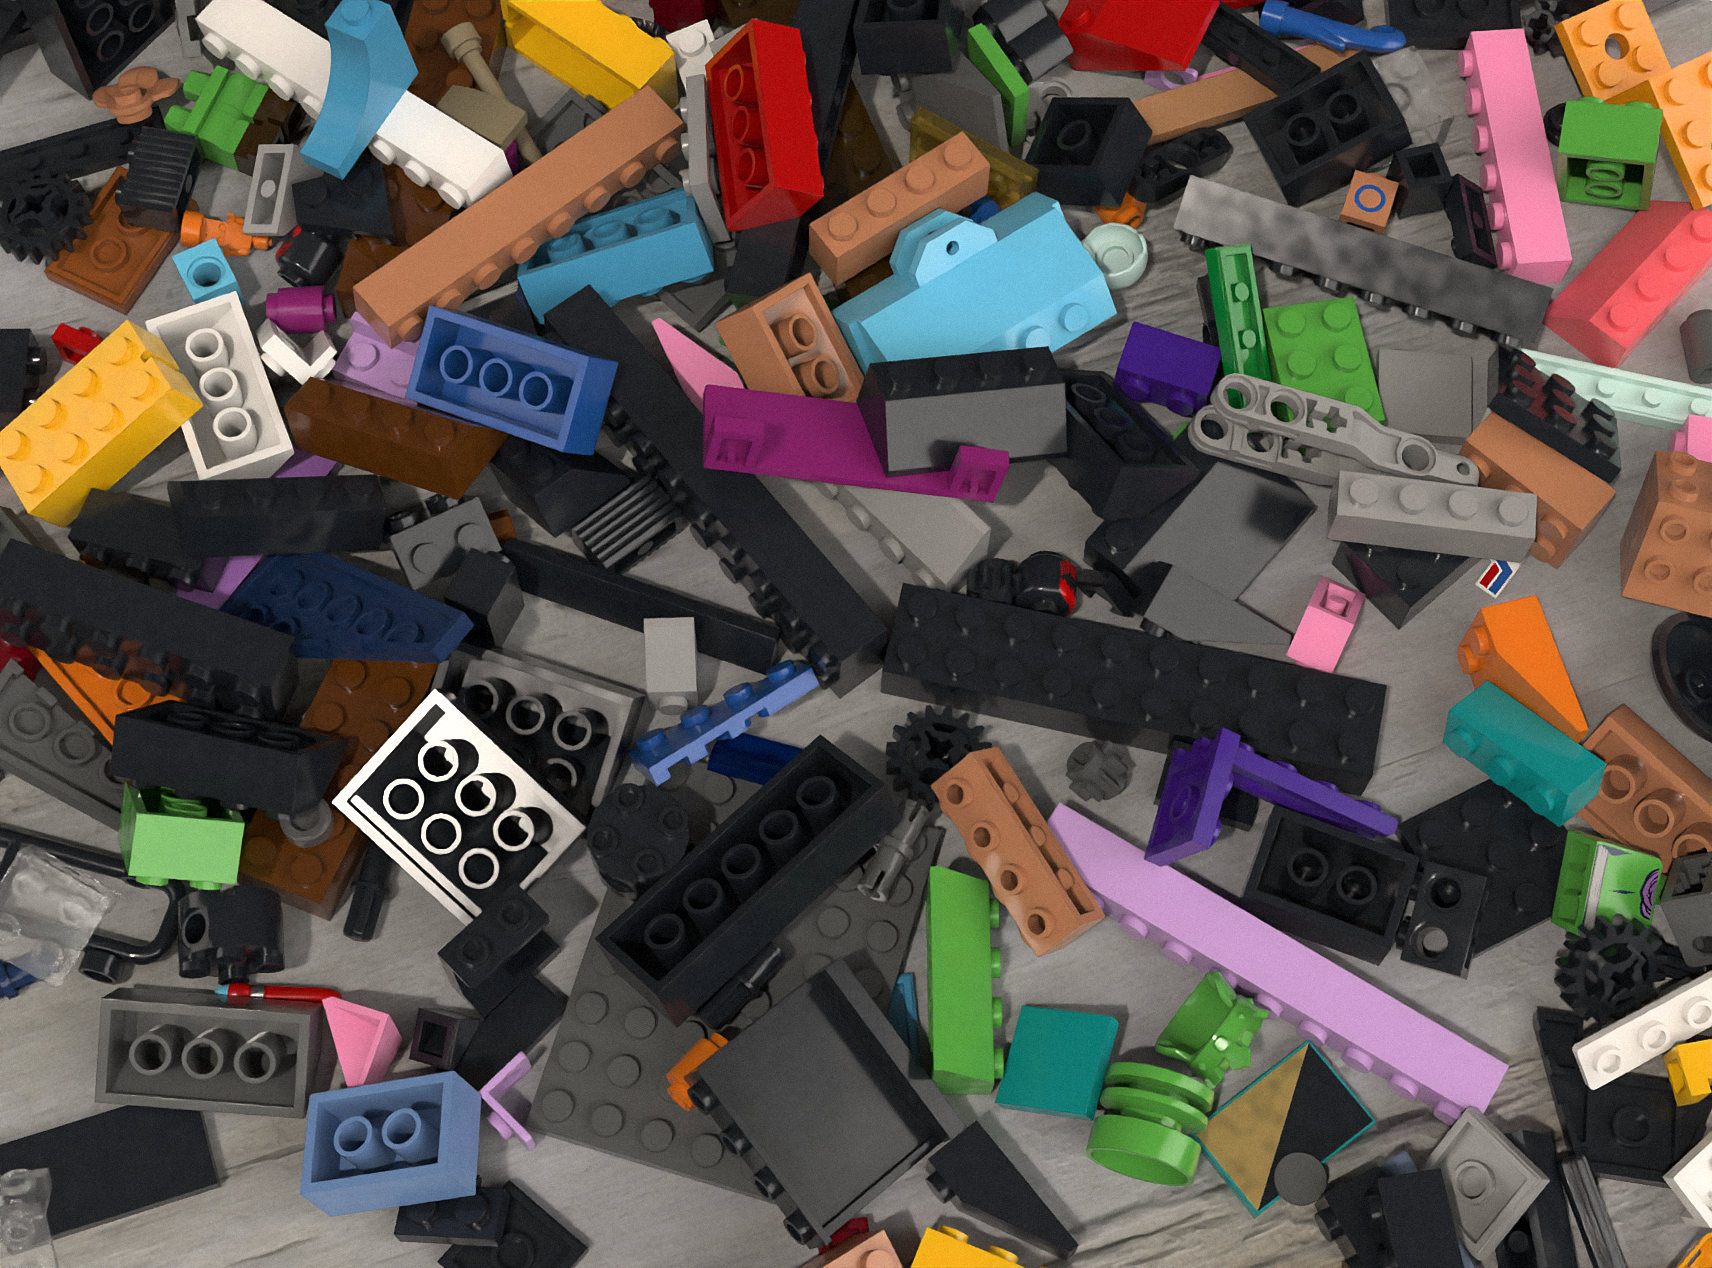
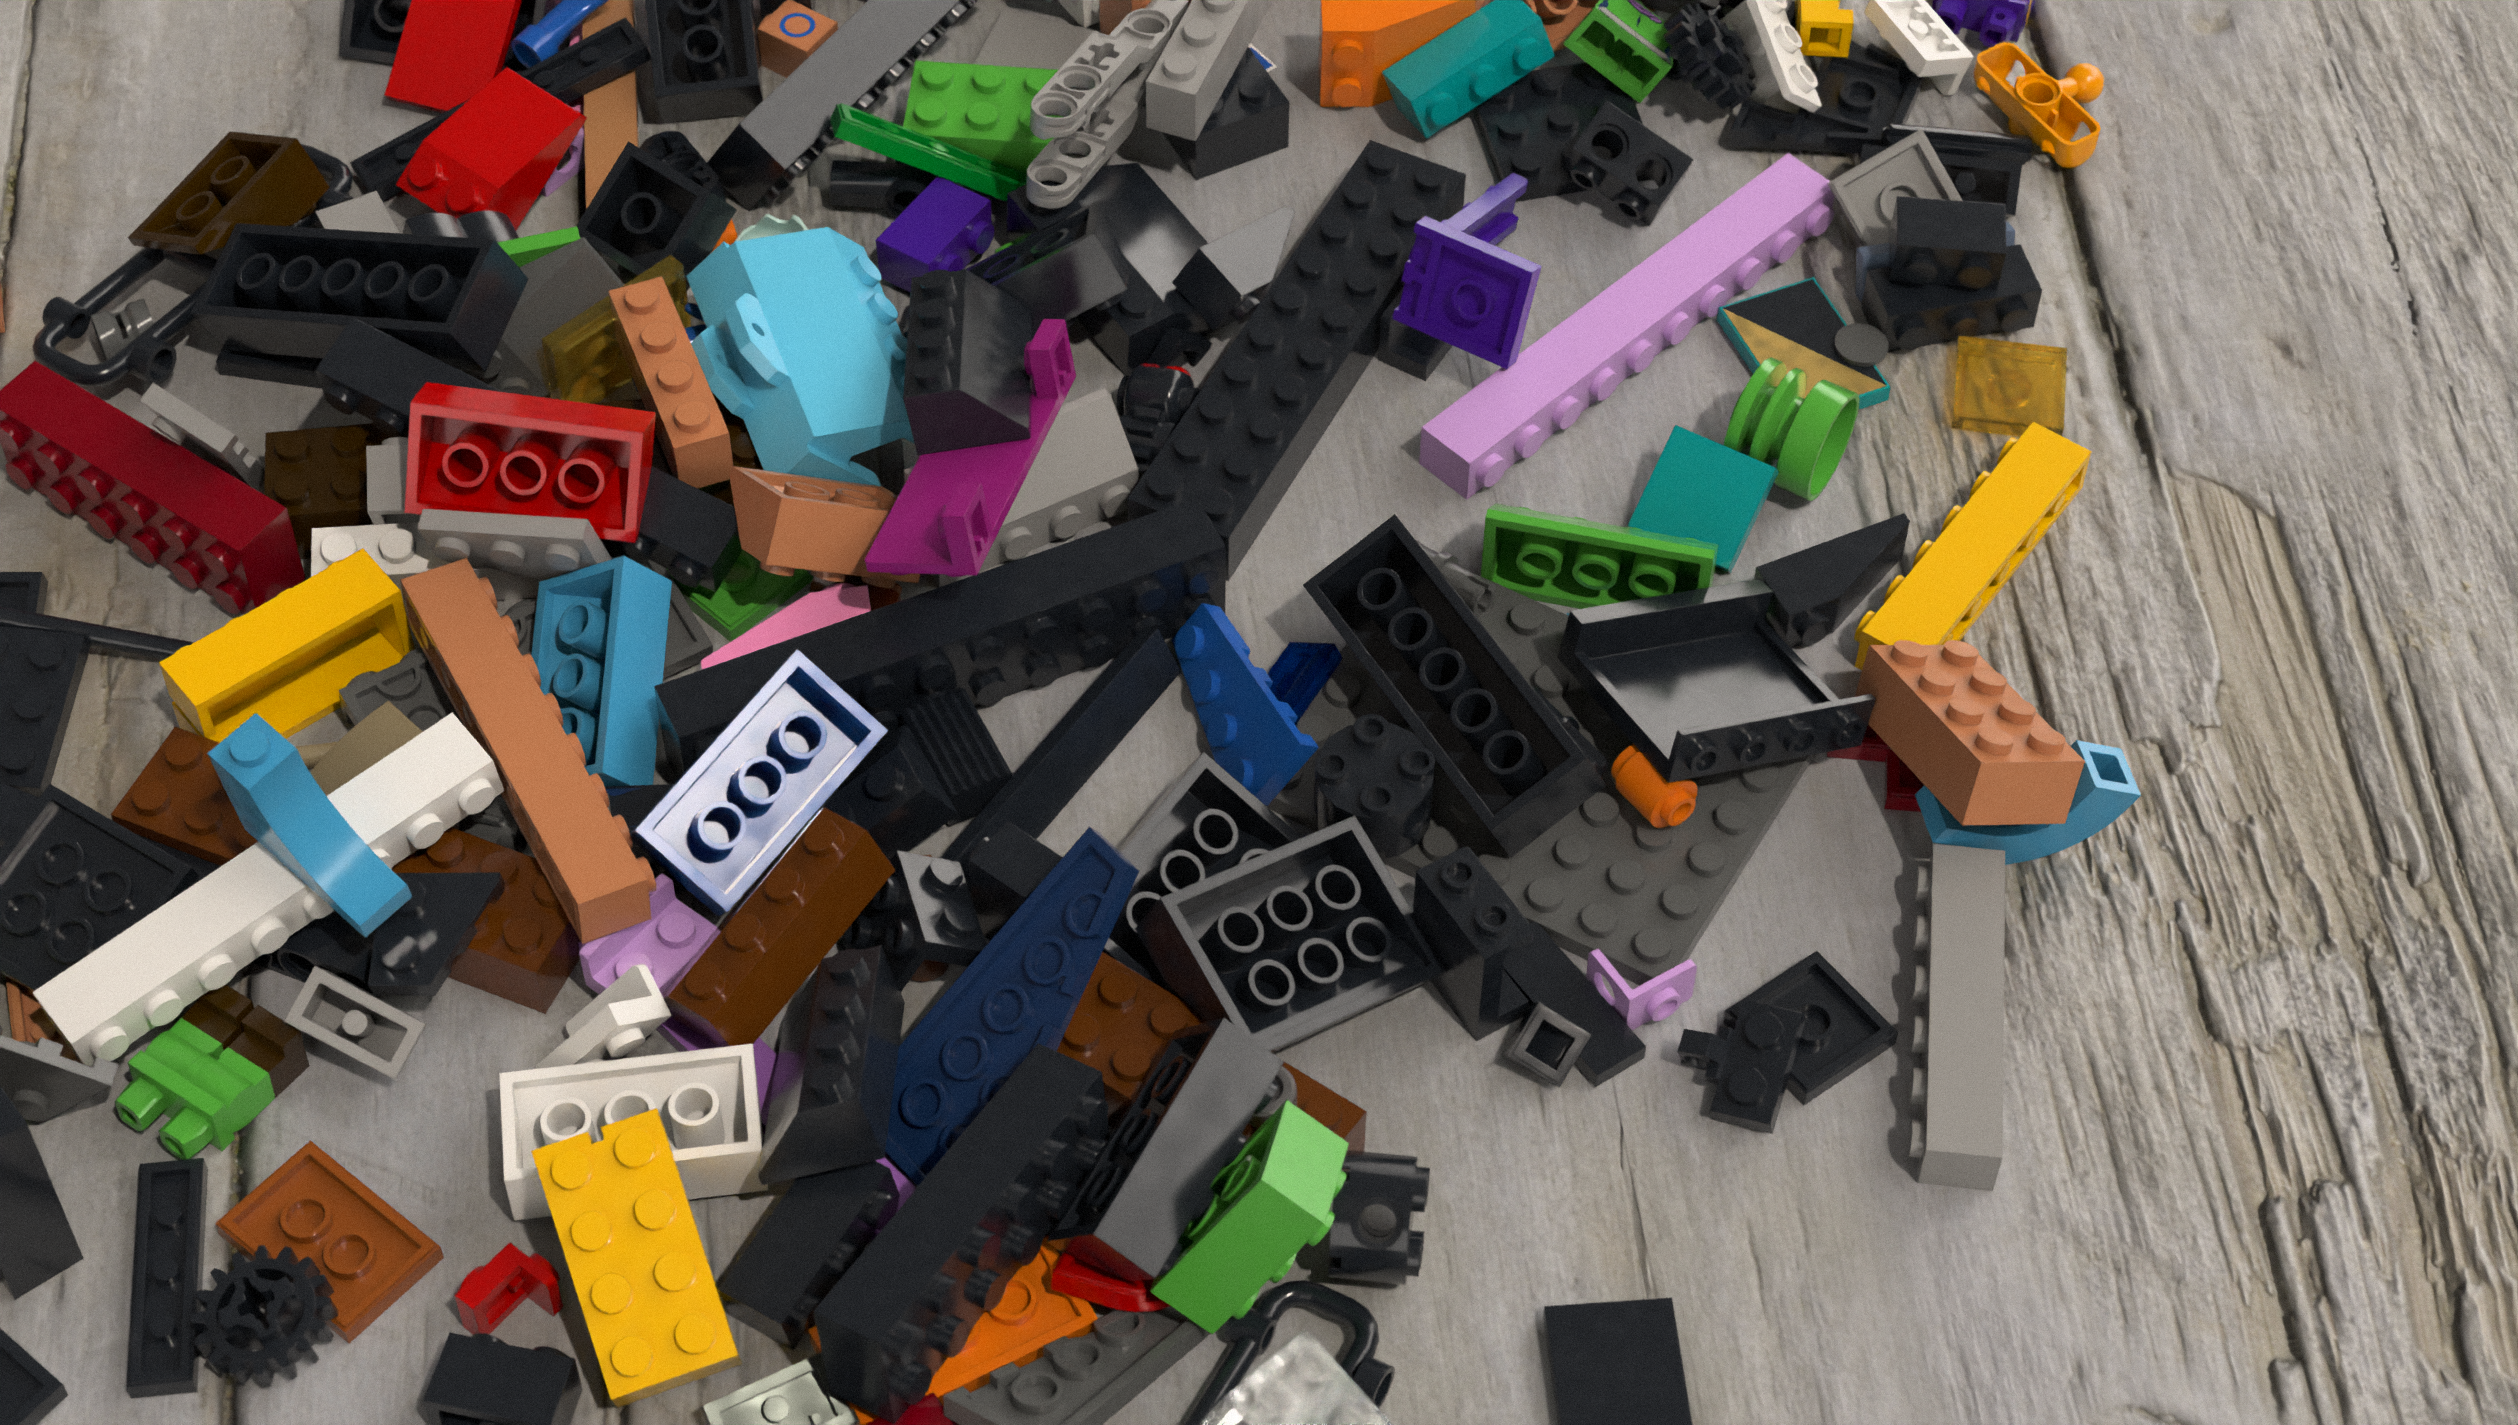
camera: 75 degrees left, 15 degrees down
(134, 94) = (113, 1183): nougat plate -> none
(159, 178) = (276, 1154): black brick -> none
(203, 265) = (435, 1115): medium azure brick -> none
(208, 1052) = (1513, 1272): dark grey slope -> none
(228, 234) = (382, 1106): orange piece -> none
(278, 992) = (1448, 1210): red piece -> none
(301, 309) = (528, 1033): magenta brick -> none
(309, 258) = (460, 1021): black head -> none
(363, 1040) = (1542, 1115): bright pink slope -> none
(369, 894) = (1381, 1105): black axle -> none
(391, 1144) = (1678, 1081): medium blue brick -> none
(671, 664) = (1153, 733): light grey slope -> none
(929, 739) = (1323, 524): black gear -> none
(1017, 851) = (1475, 461): nougat brick -> none
(1096, 770) = (1386, 401): dark grey gear -> none
(1212, 1030) = (1699, 362): bright green hair -> none
(1325, 626) = (1275, 180): bright pink slope -> none
(1328, 885) = (1582, 234): black brick -> none

